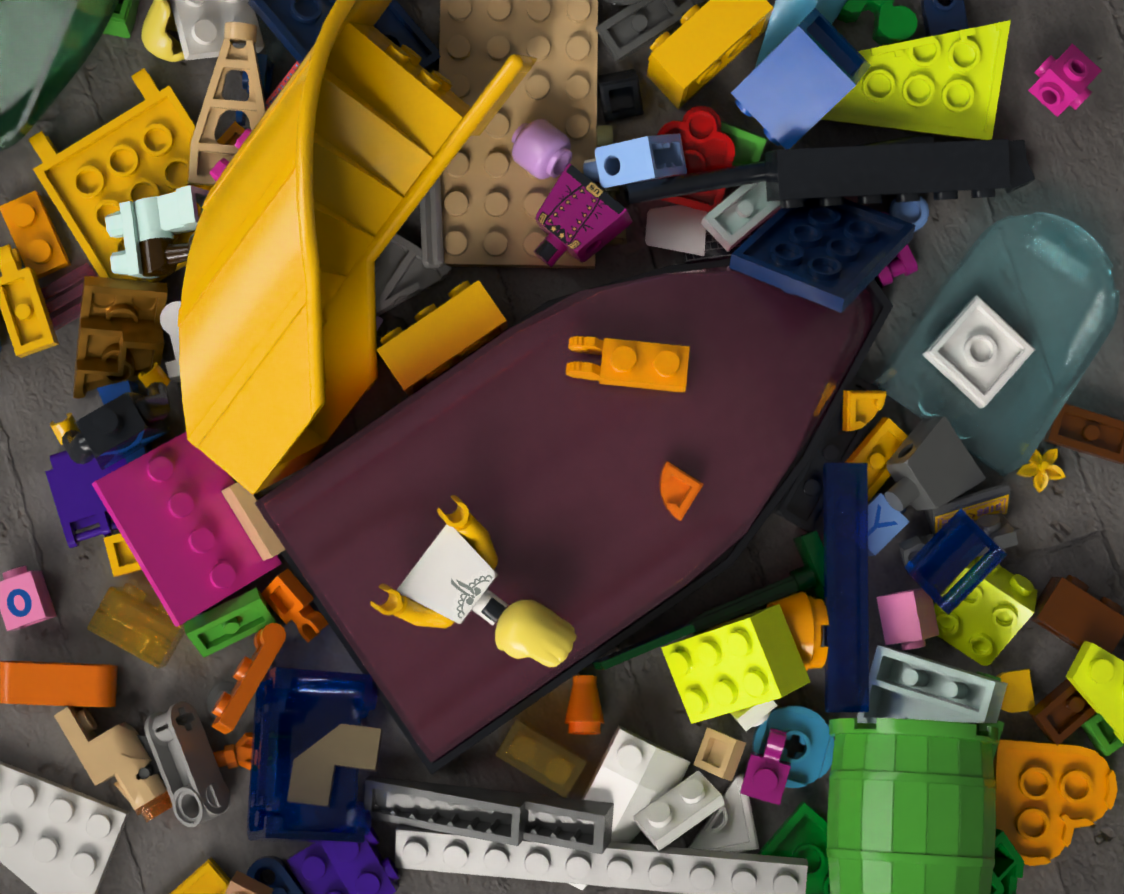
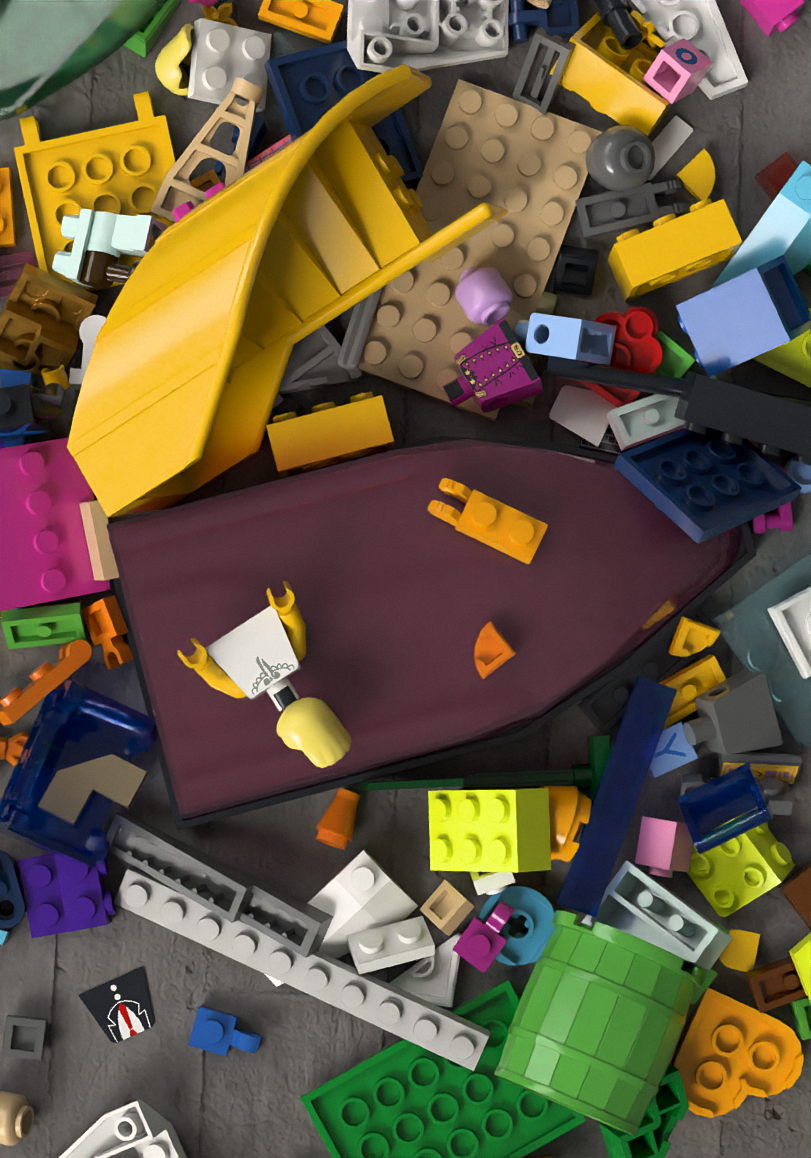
camera: 25 degrees right, 0 degrees up
(541, 756) = (283, 850): clear yellow brick -> none

